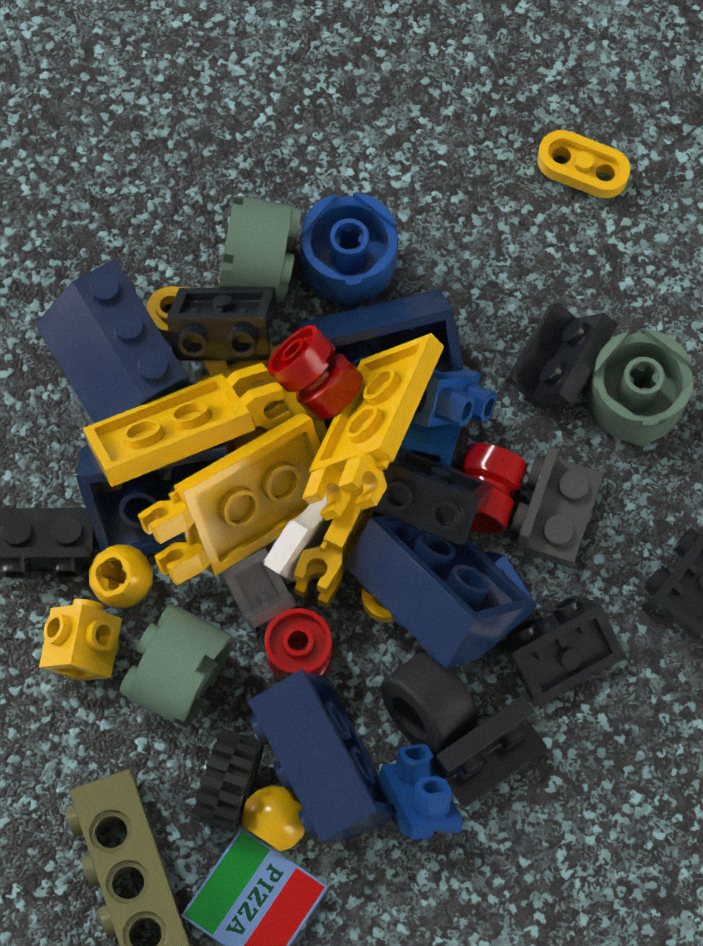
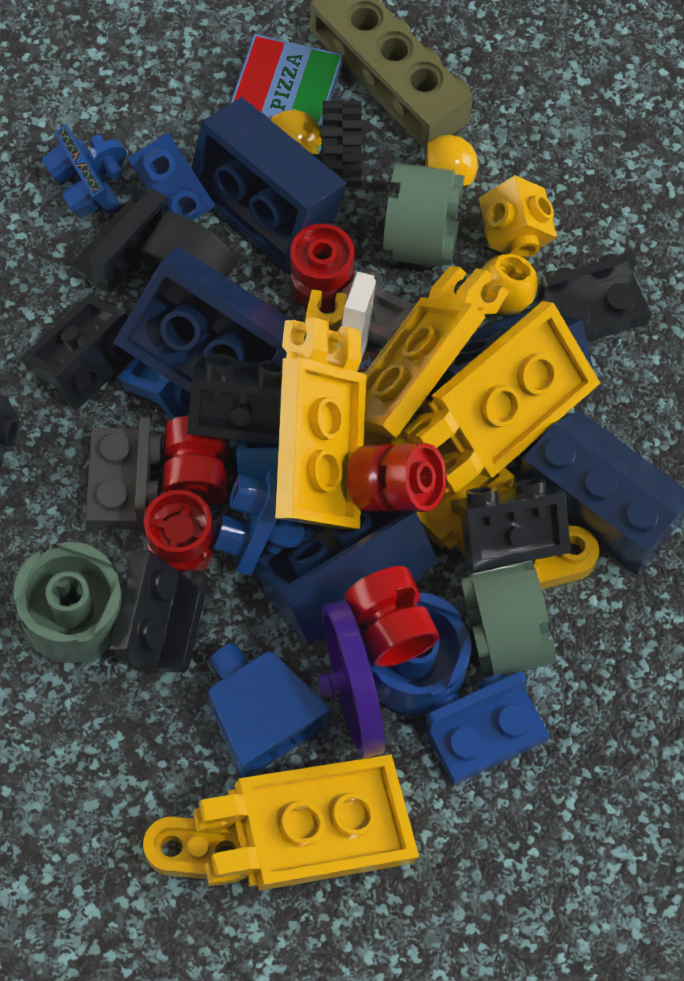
camera: 160 degrees right, 5 degrees down
(122, 733) = (454, 154): none -> yellow piece
(309, 180) = (484, 726): none -> blue bracket
(369, 241) = (394, 622): none -> red wheel
(419, 222) = (351, 679): none -> dark purple piece
(488, 146) = (310, 824): none -> yellow tile
(495, 253) = (262, 708): none -> blue torso
(498, 854) = (93, 188): none -> blue hips
(524, 409) = (180, 530): none -> red wheel

